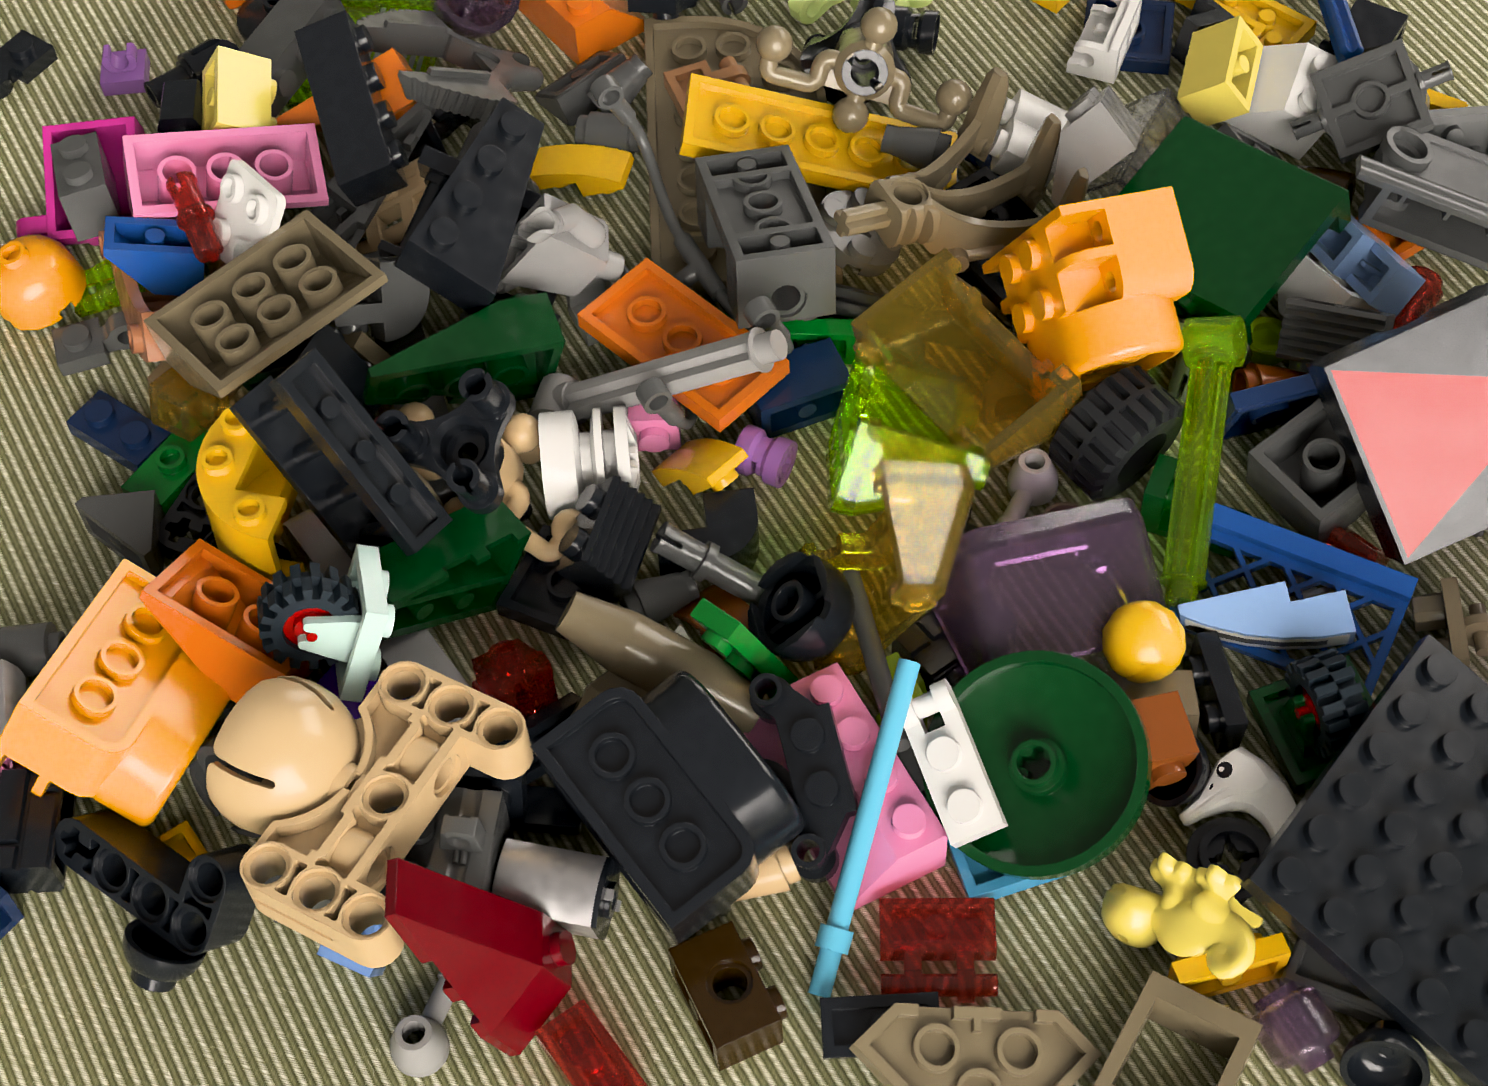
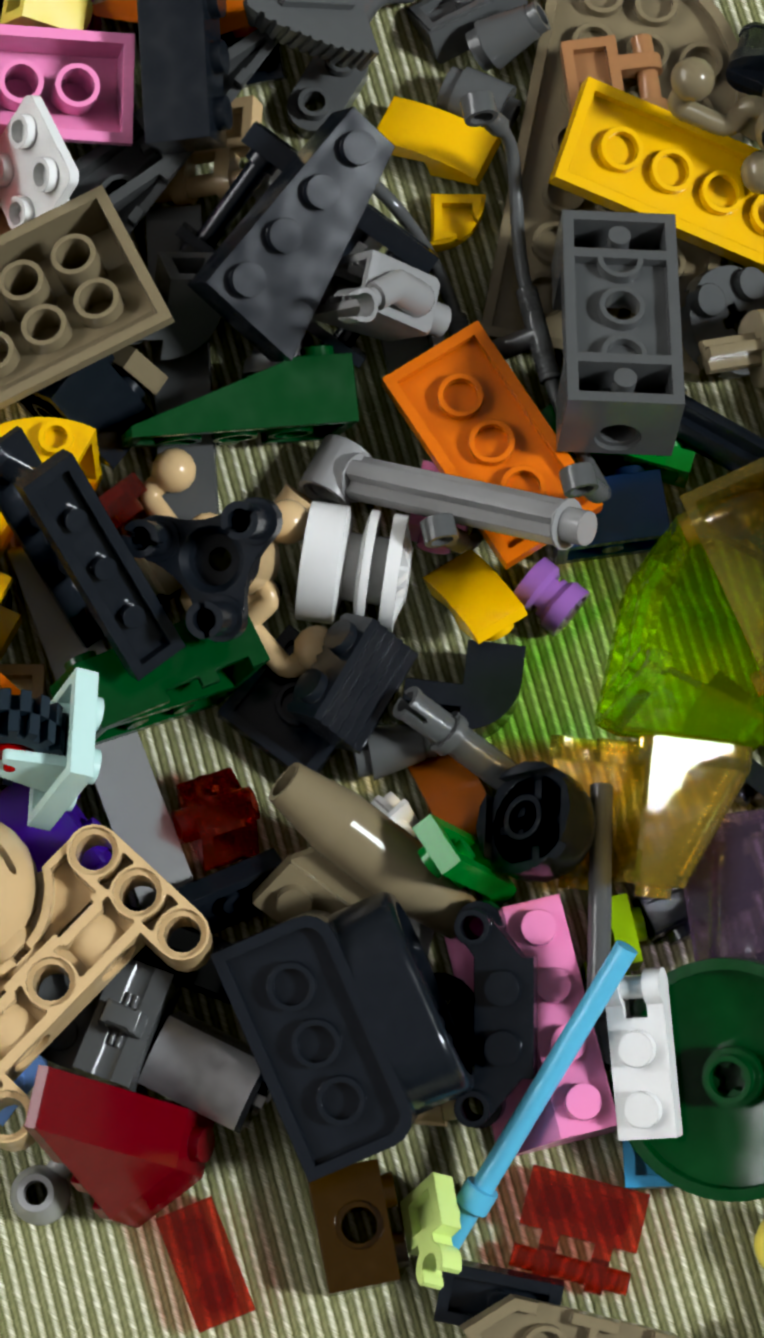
camera: 10 degrees right, 20 degrees up
(617, 215) = (454, 218): none -> yellow tile
(797, 971) = (429, 1223): none -> yellowish green plate

